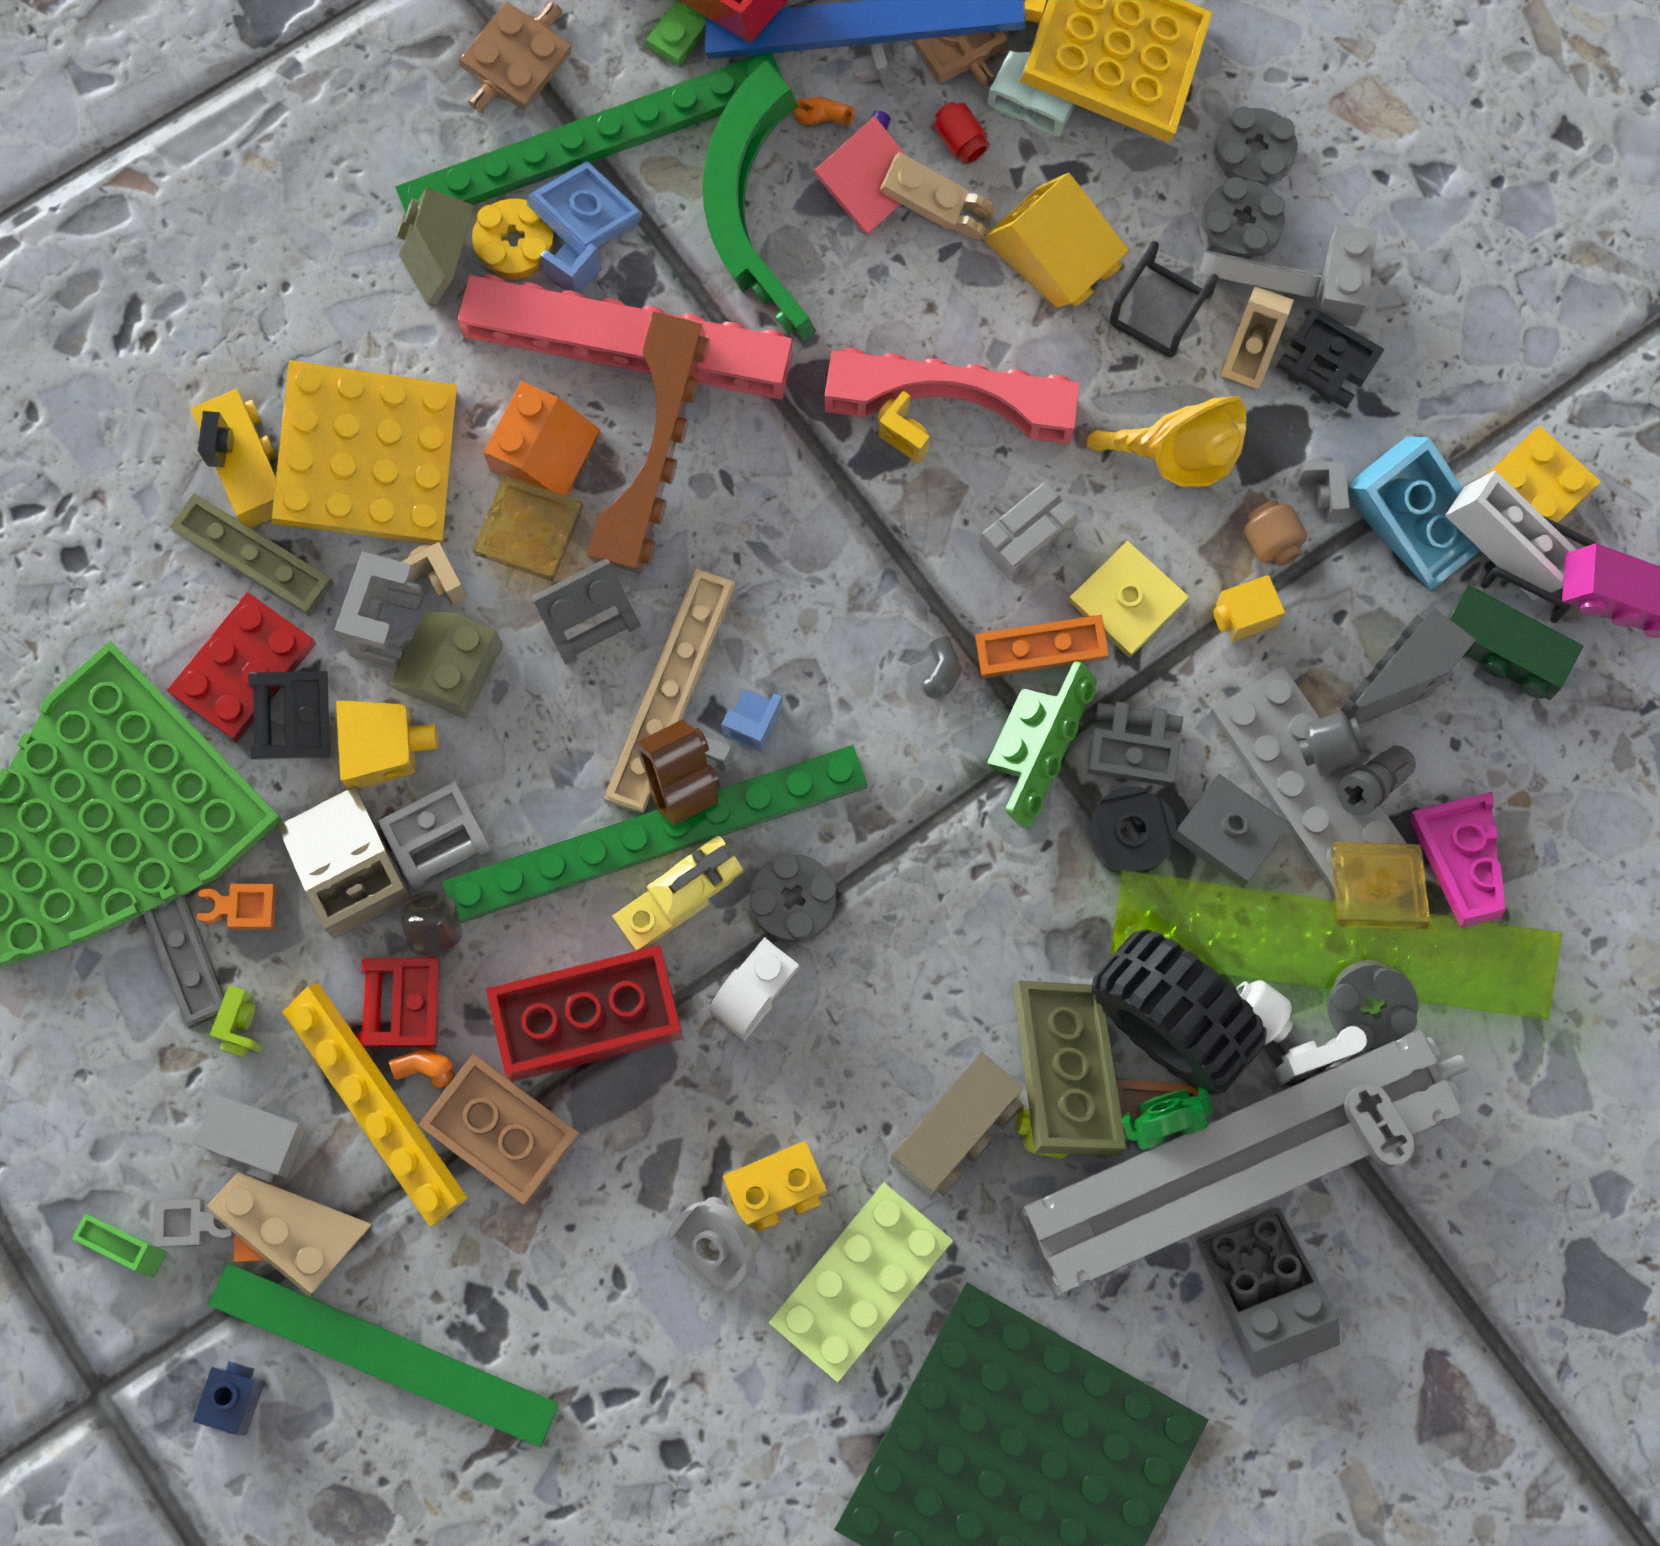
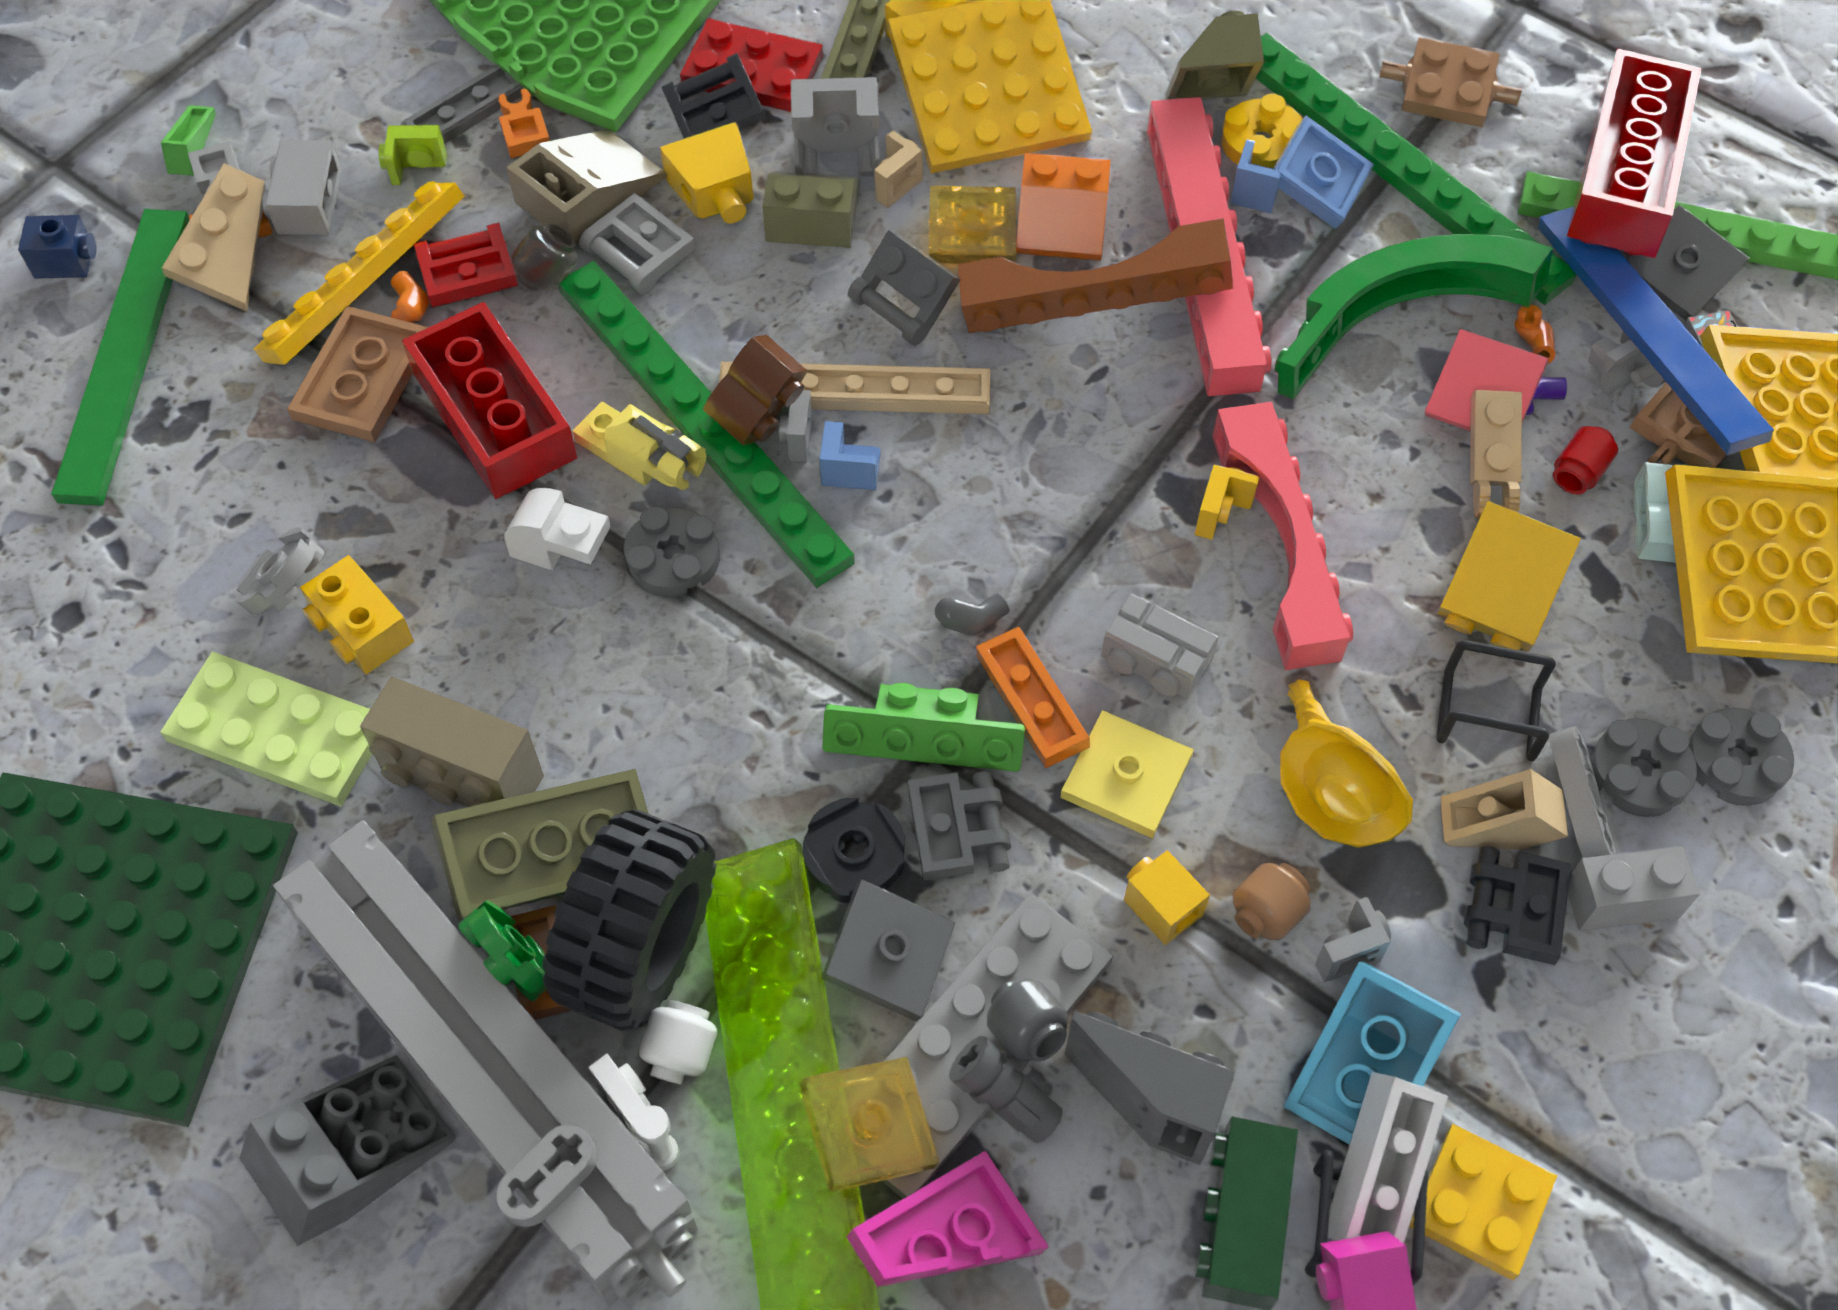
camera: 70 degrees right, 15 degrees down
(1383, 981) = (696, 1158): dark grey plate -> none

